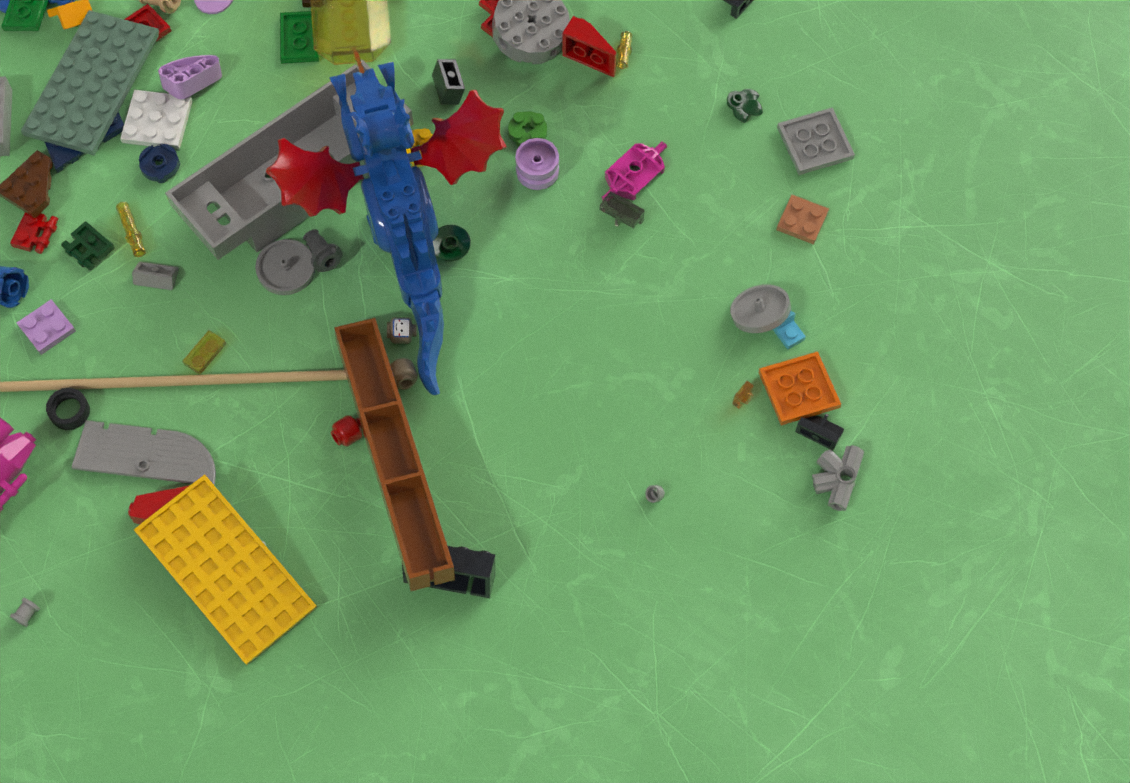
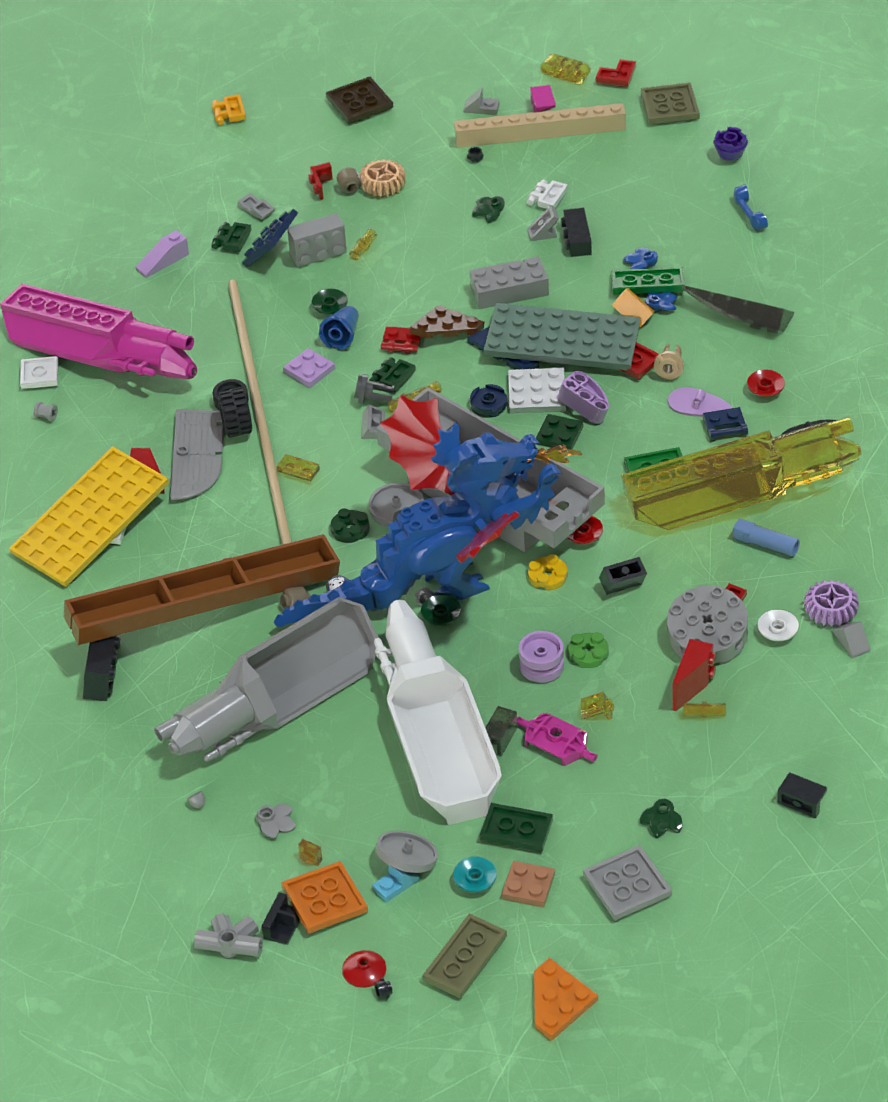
camera: 85 degrees right, 20 degrees down
(110, 271) = (365, 389): none -> dark grey piece
(110, 399) = (235, 412): none -> black tyre
(225, 109) = (559, 431): none -> dark green plate
(302, 302) = (350, 517): none -> dark green plate
(533, 403) = (277, 680): none -> light grey piece
(604, 132) = (596, 705): none -> clear yellow bracket
(605, 257) = (437, 721): none -> white piece
(694, 422) = (275, 820): none -> light grey plate
(738, 217) = (516, 827): none -> dark green plate
(794, 251) = (474, 868): none -> teal dish
(878, 374) = (364, 975): none -> red dish
(881, 279) = (464, 955): none -> olive plate
(911, 351) = (383, 989): none -> black plate
(934, 215) = (558, 998): none -> orange plate

